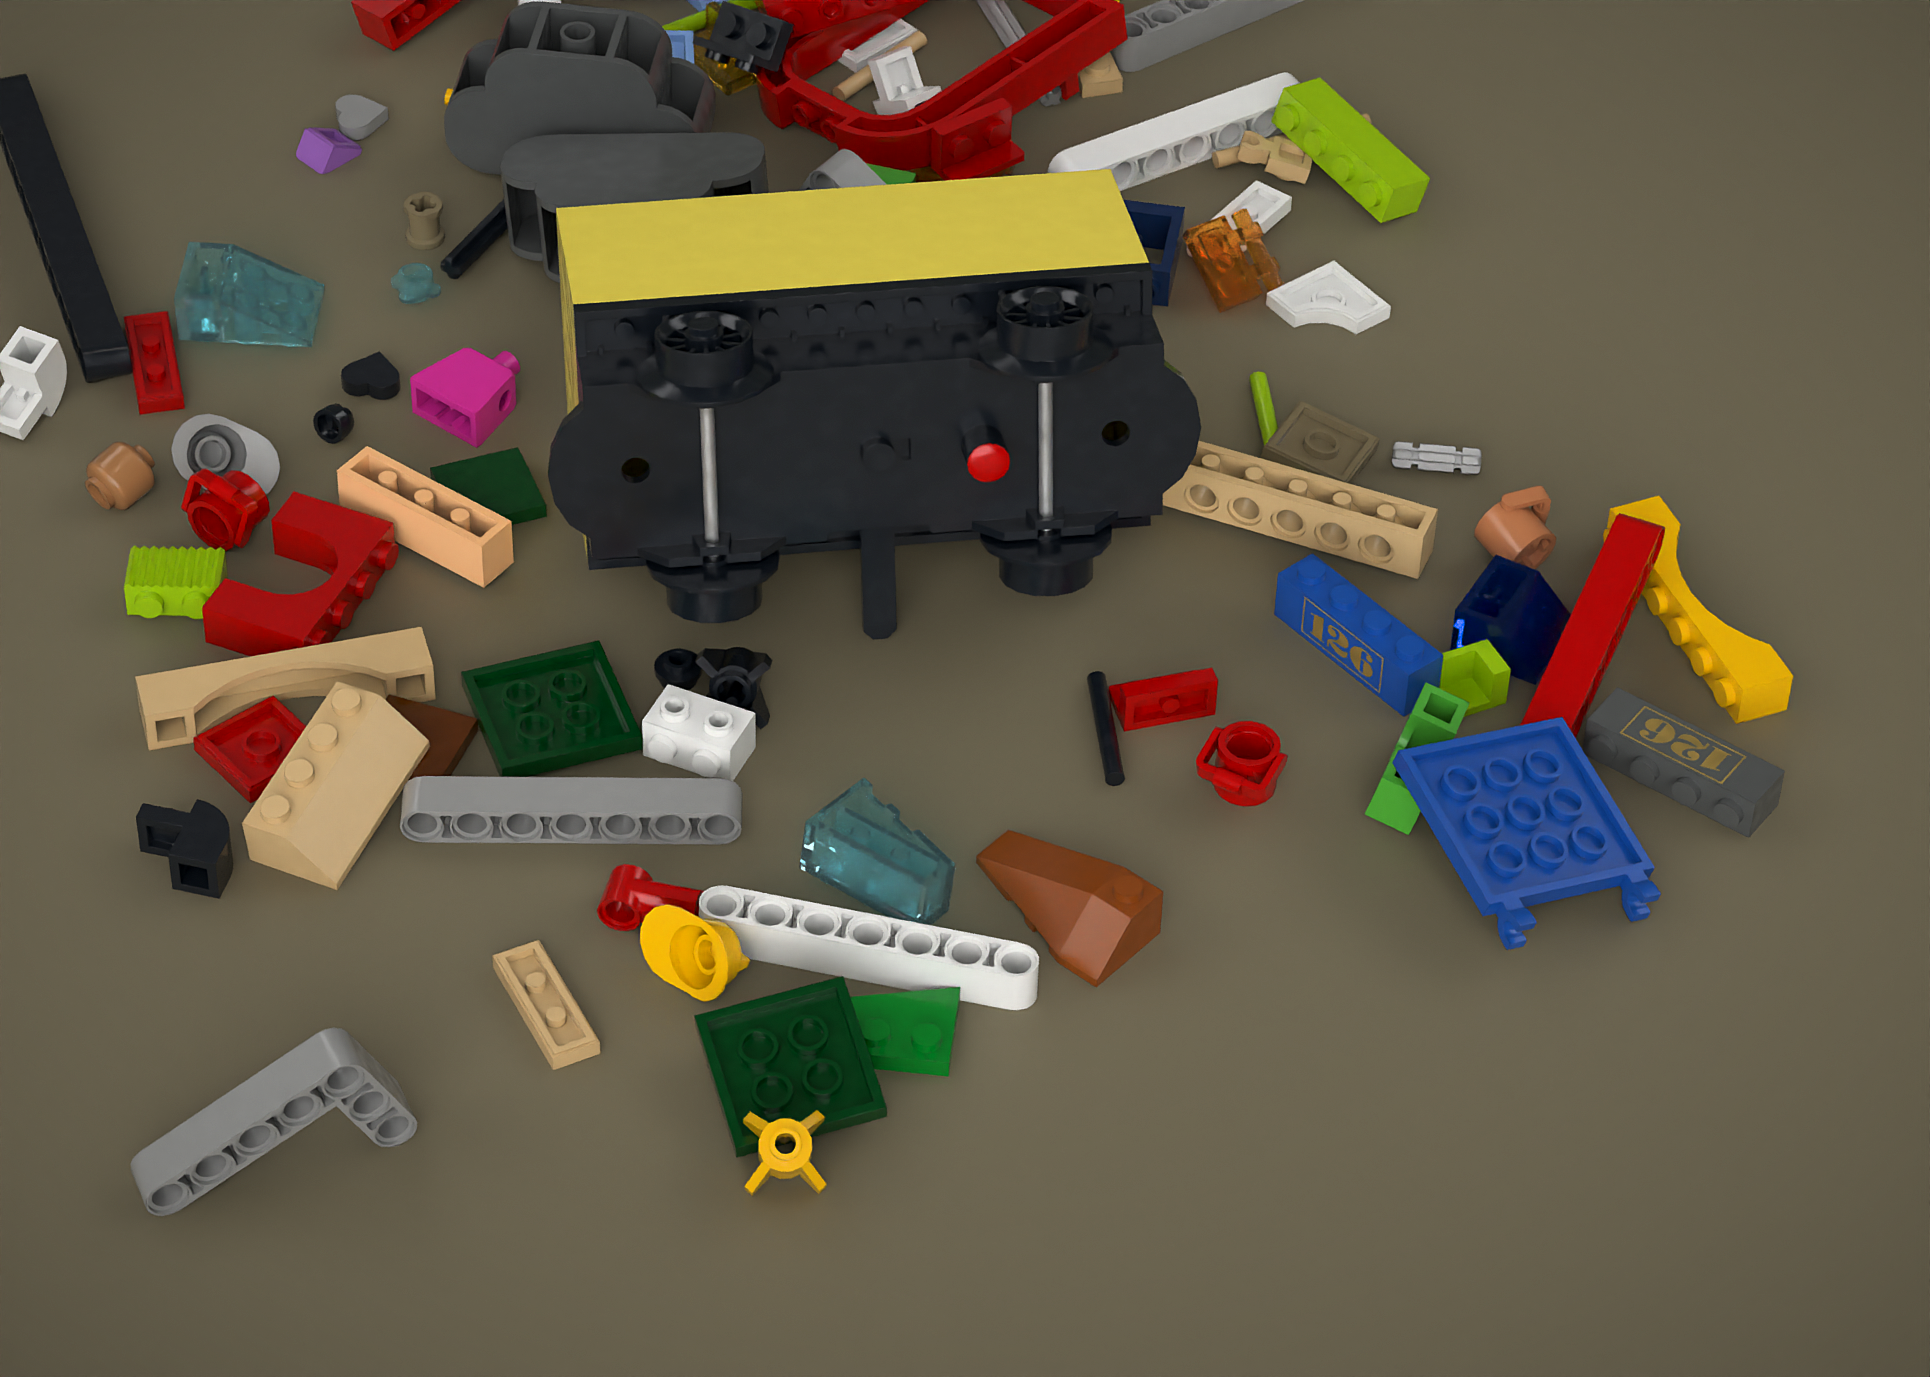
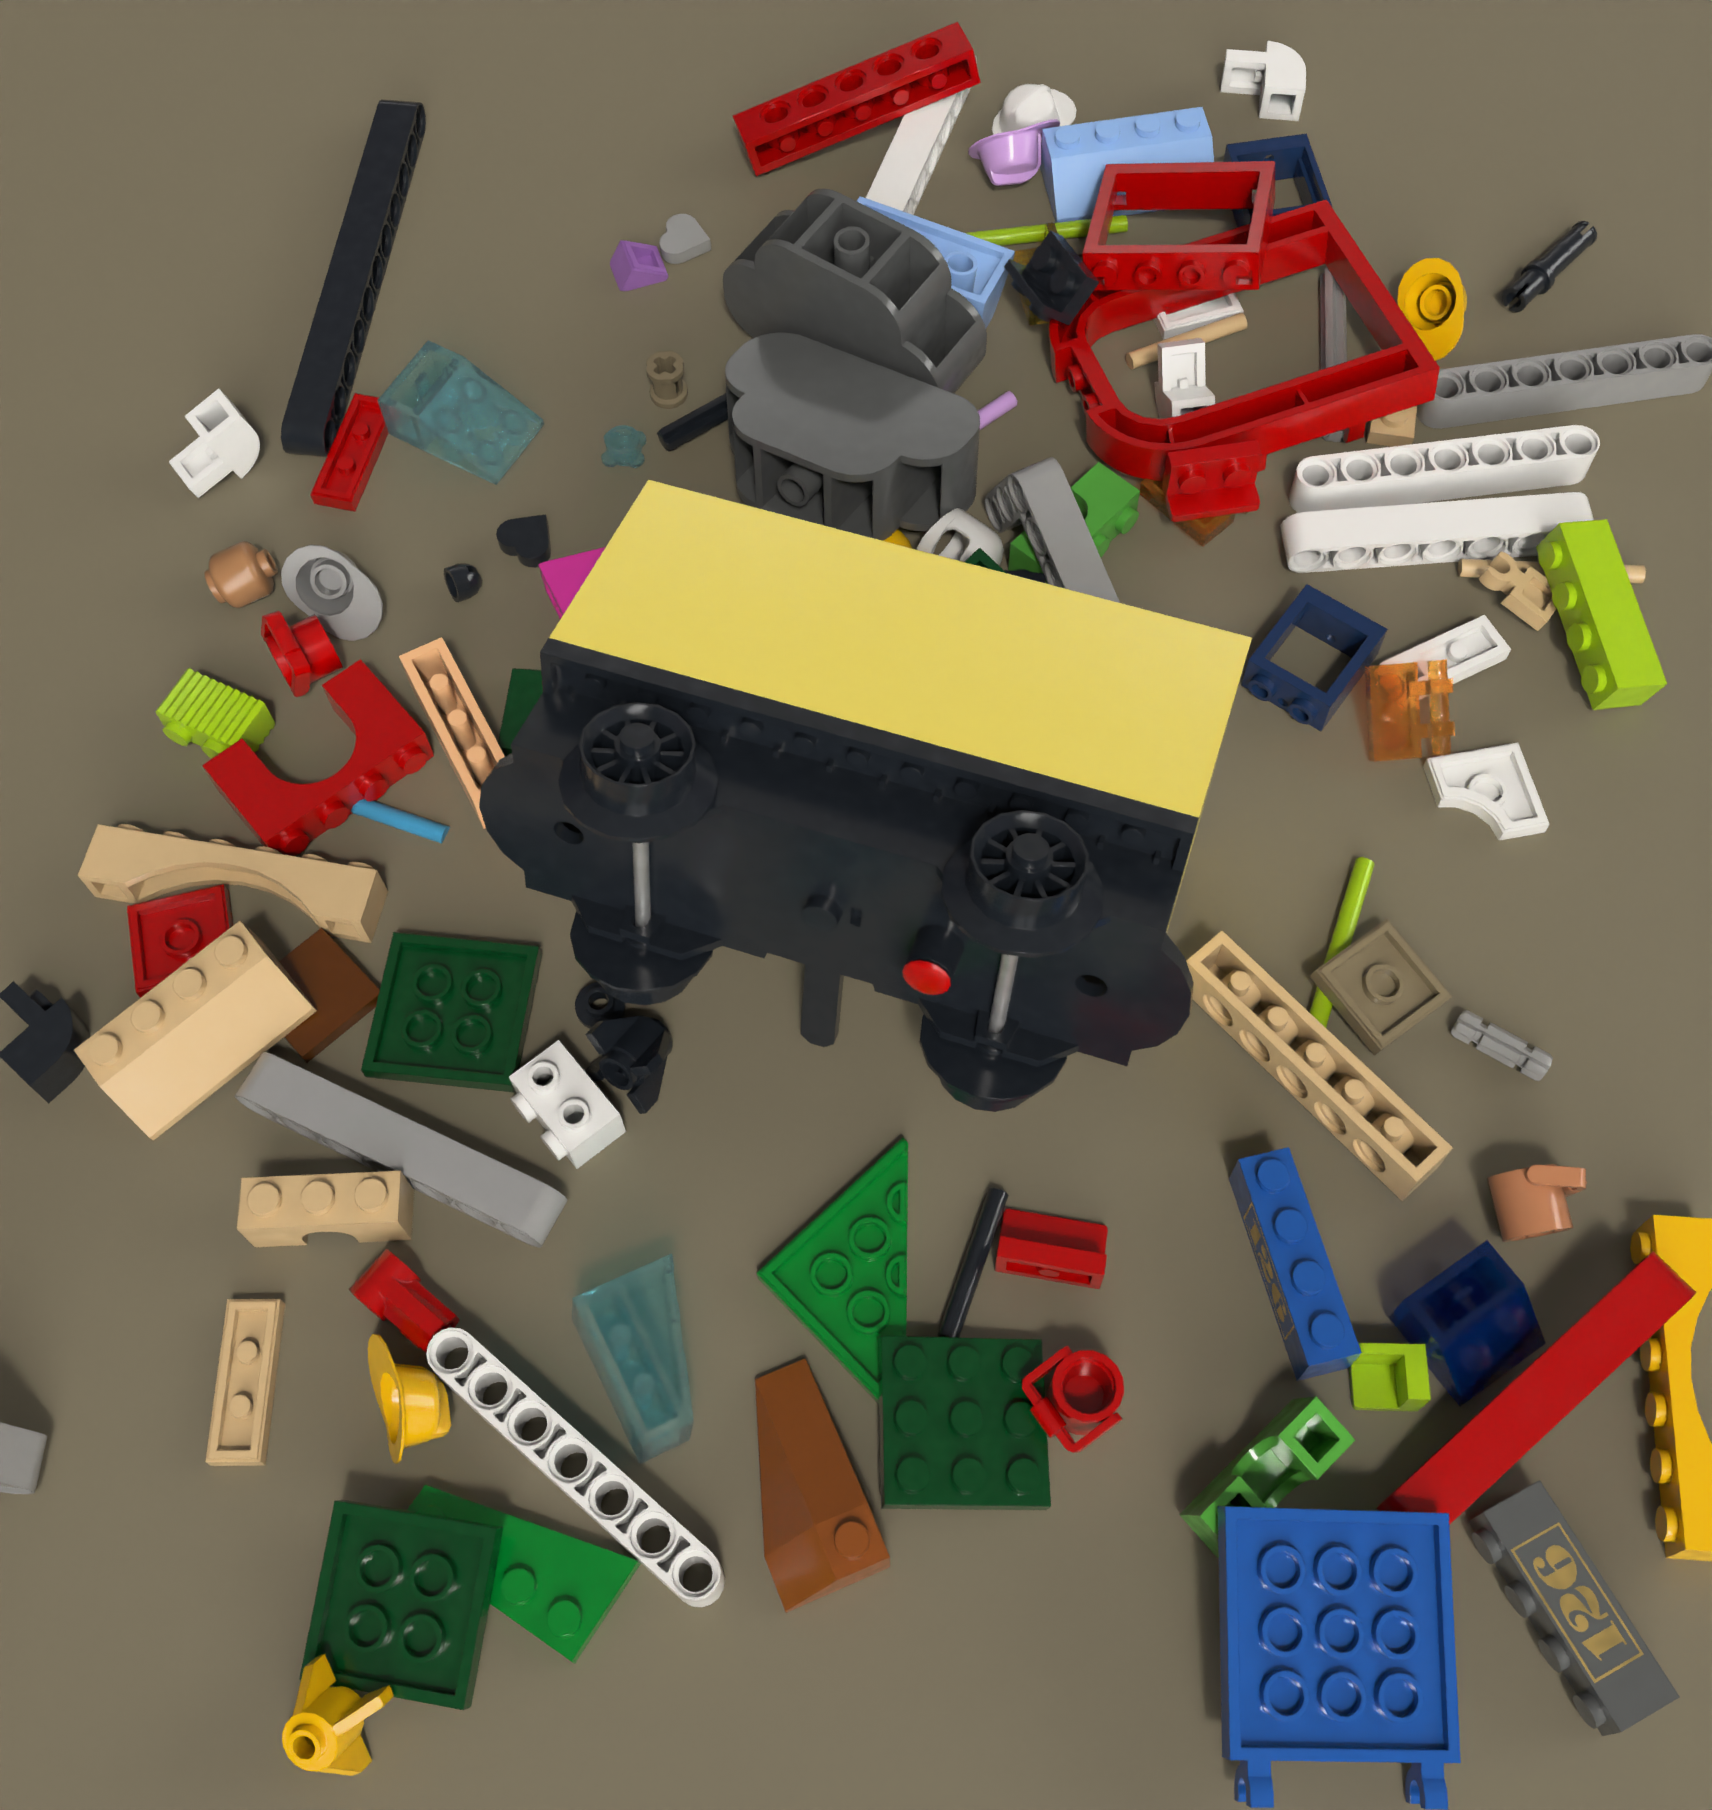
camera: 30 degrees right, 20 degrees up
(400, 608) = (401, 820): none -> dark azure bar
(504, 871) = (359, 1204): none -> tan arch
(1015, 772) = (850, 1269): none -> green tile
(1162, 817) = (960, 1424): none -> dark green plate
(1163, 88) = (1444, 469): none -> white beam

